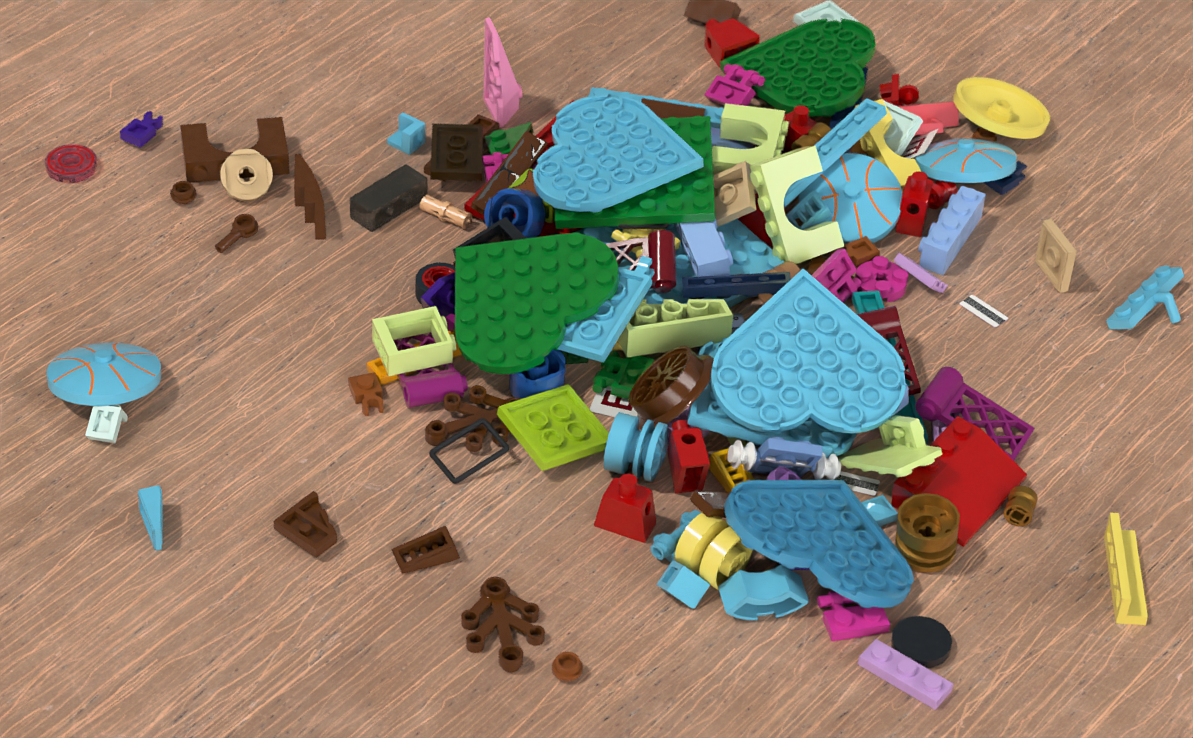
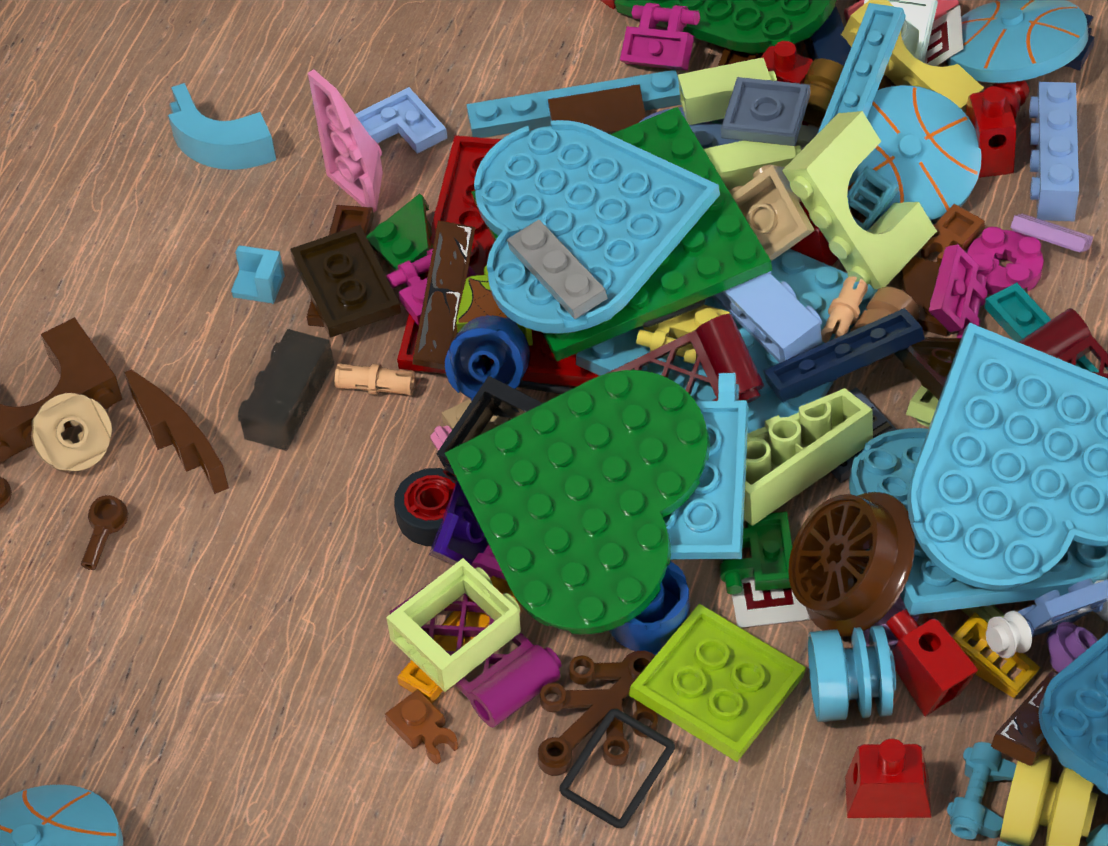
camera: 15 degrees left, 10 degrees up
(427, 59) = (217, 143): none -> medium azure arch
(548, 80) = (404, 115): none -> light blue plate
(577, 171) = (557, 269): none -> light grey plate
(756, 263) = (844, 309): none -> light nougat pin
(765, 137) = (765, 111): none -> sand blue tile

